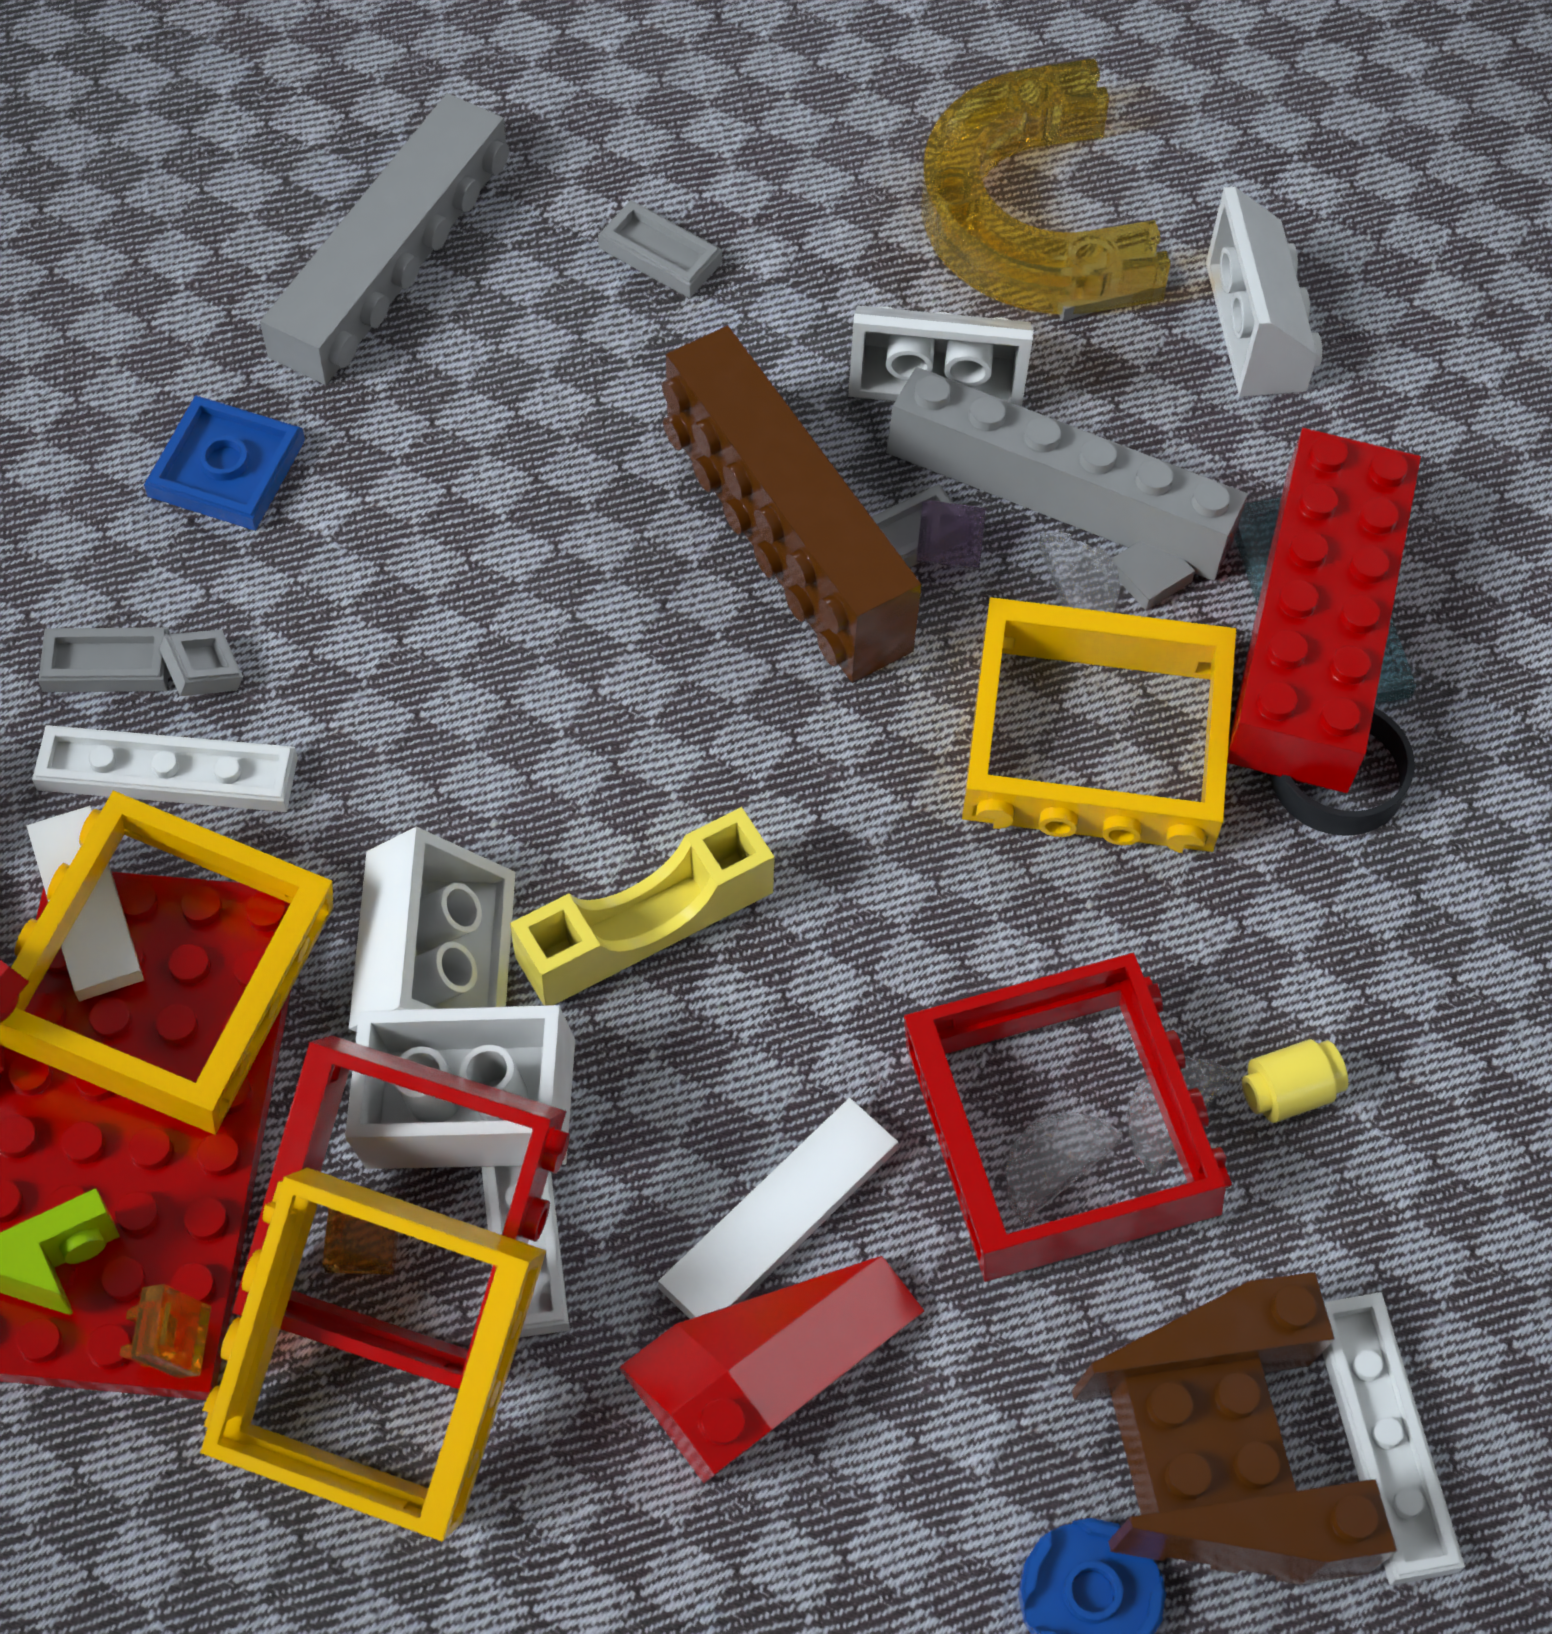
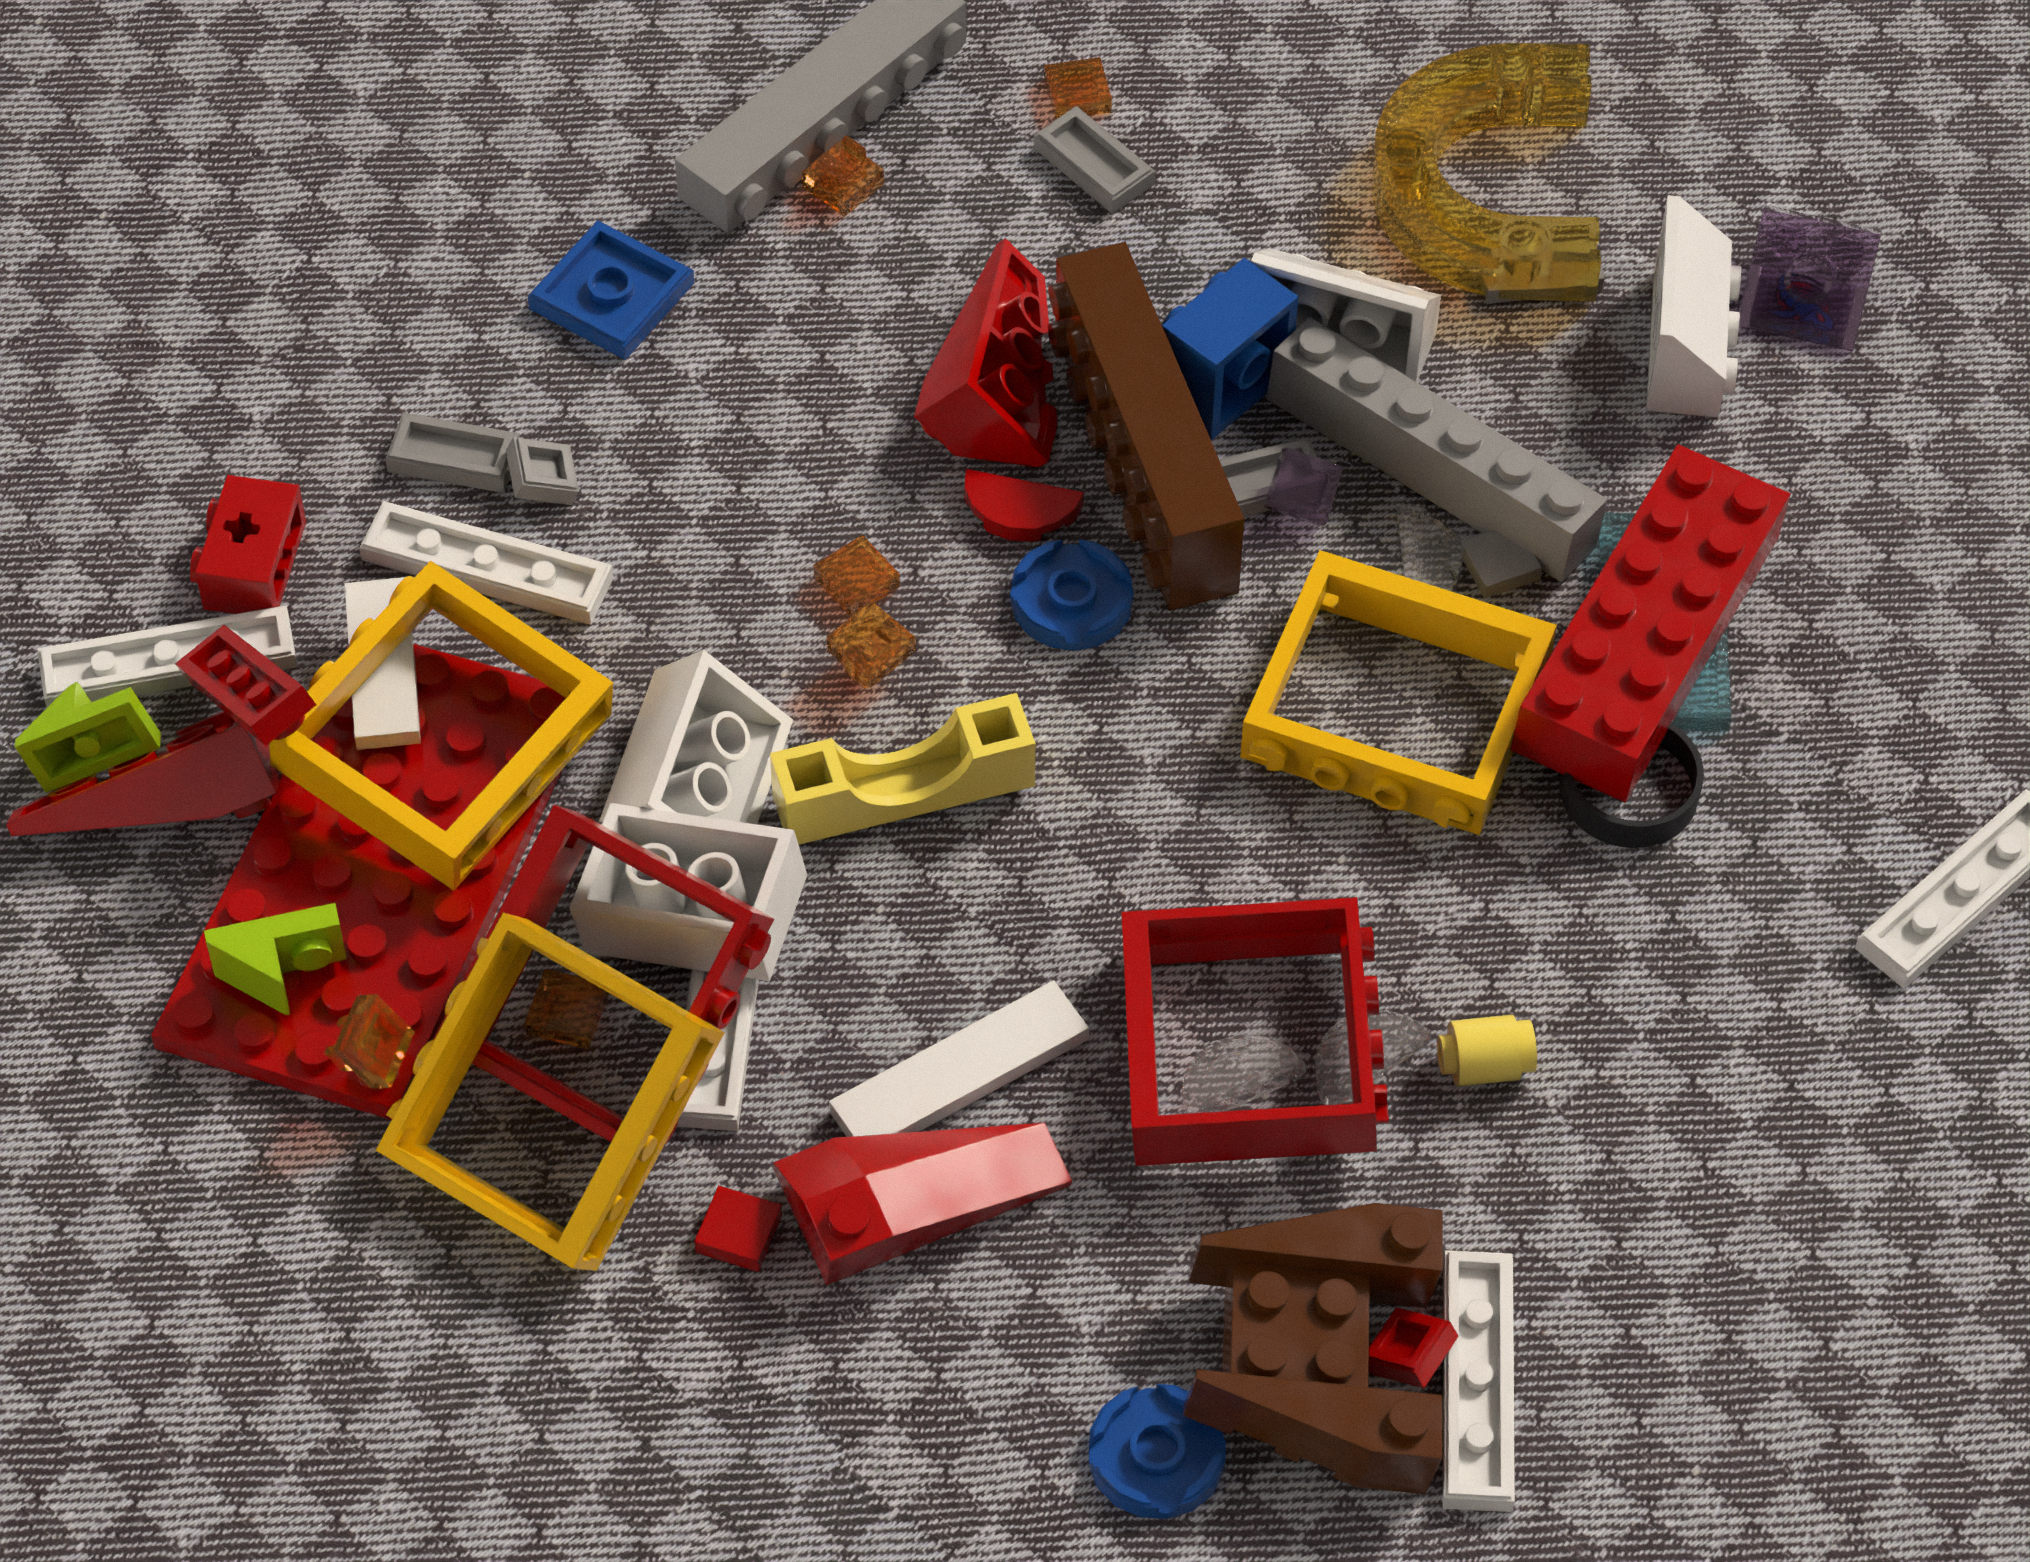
camera: 15 degrees right, 5 degrees down
(425, 308) = (843, 176): none -> clear orange tile
(540, 709) = (856, 575): none -> clear orange tile
(576, 781) = (870, 645): none -> clear orange tile
(599, 1443) = (738, 1228): none -> red tile
(618, 479) = (990, 374): none -> red wedge
(624, 180) = (1078, 84): none -> clear orange tile
(680, 608) = (1019, 507): none -> red tile
(755, 686) = (1071, 594): none -> blue tile
(850, 397) = (1229, 340): none -> blue brick
(1316, 1419) = (1410, 1347): none -> red tile
(1356, 241) = (1809, 277): none -> clear purple slope

